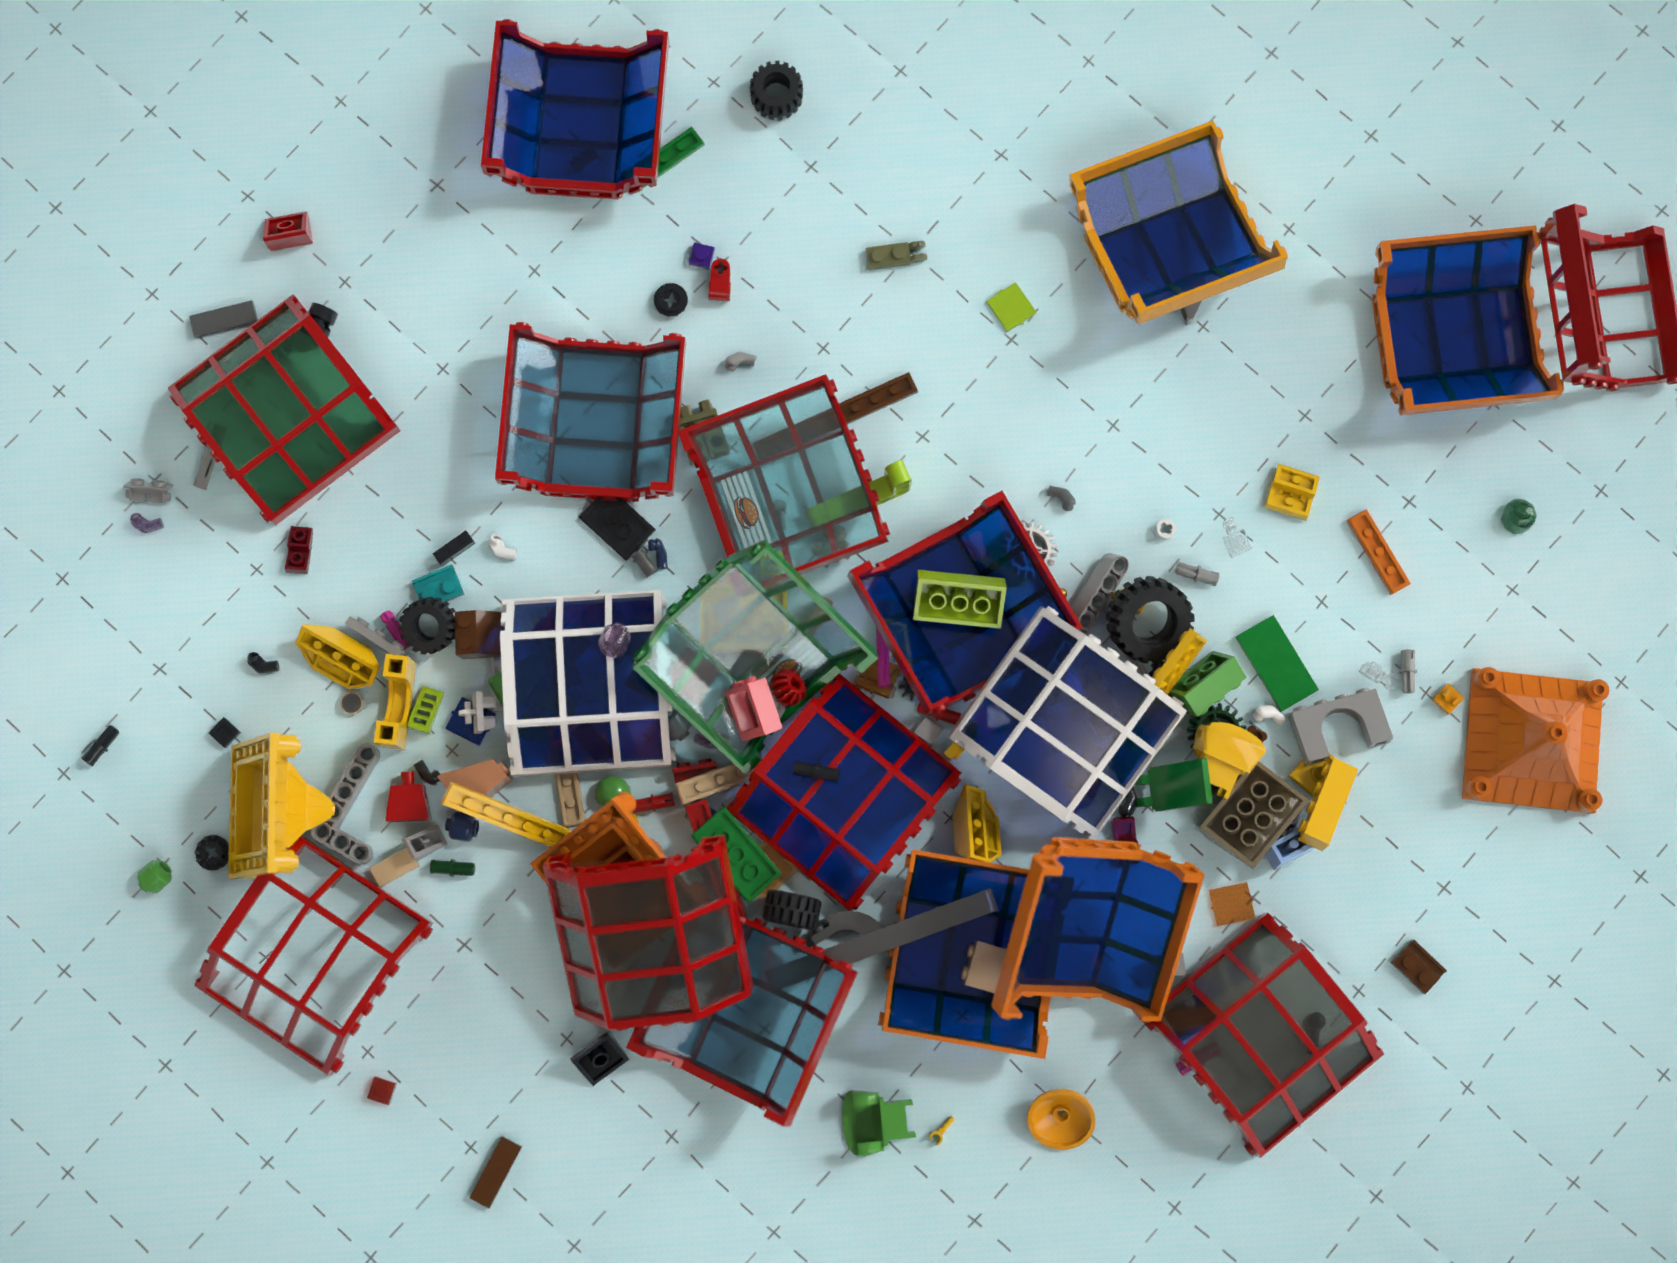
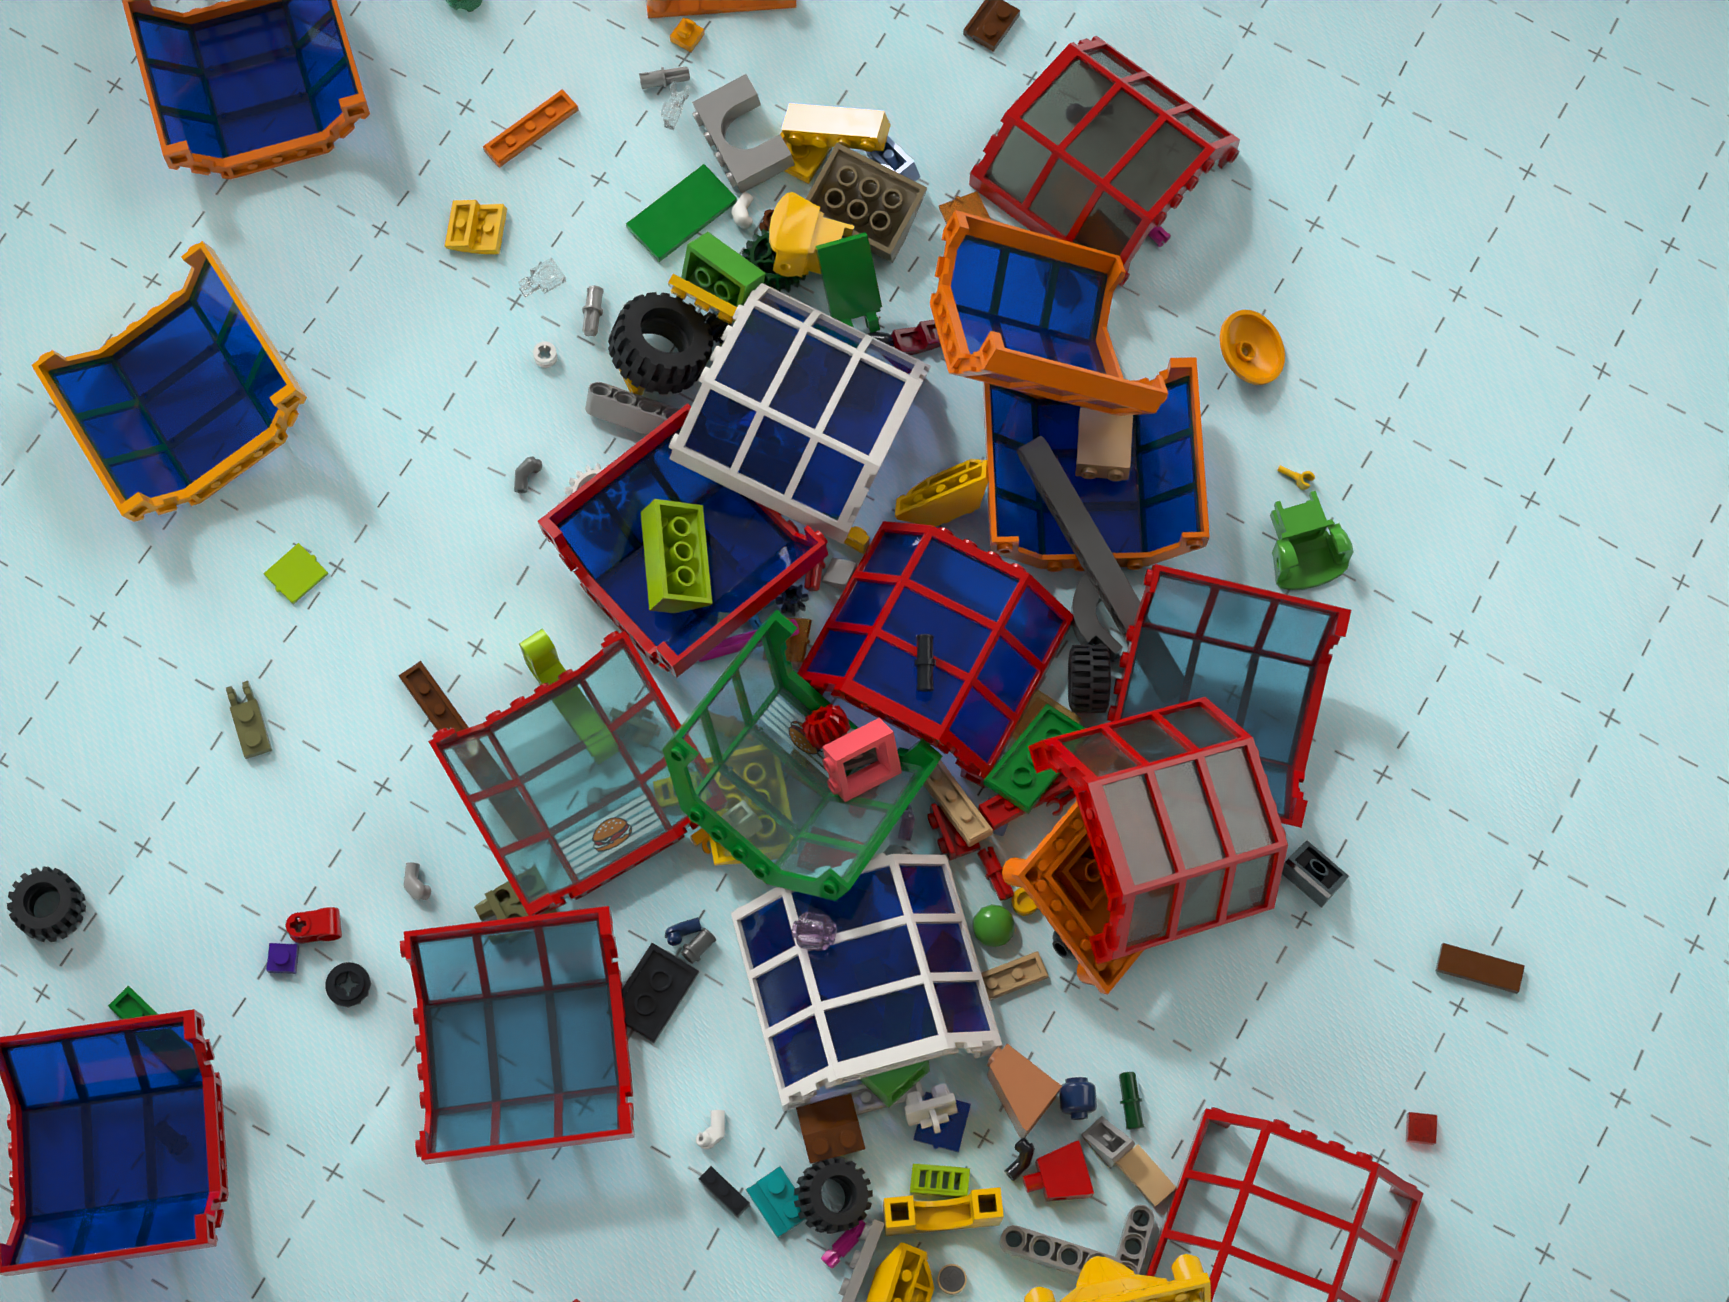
camera: 100 degrees left, 10 degrees down
(503, 815) = (1056, 1037): yellow plate -> none

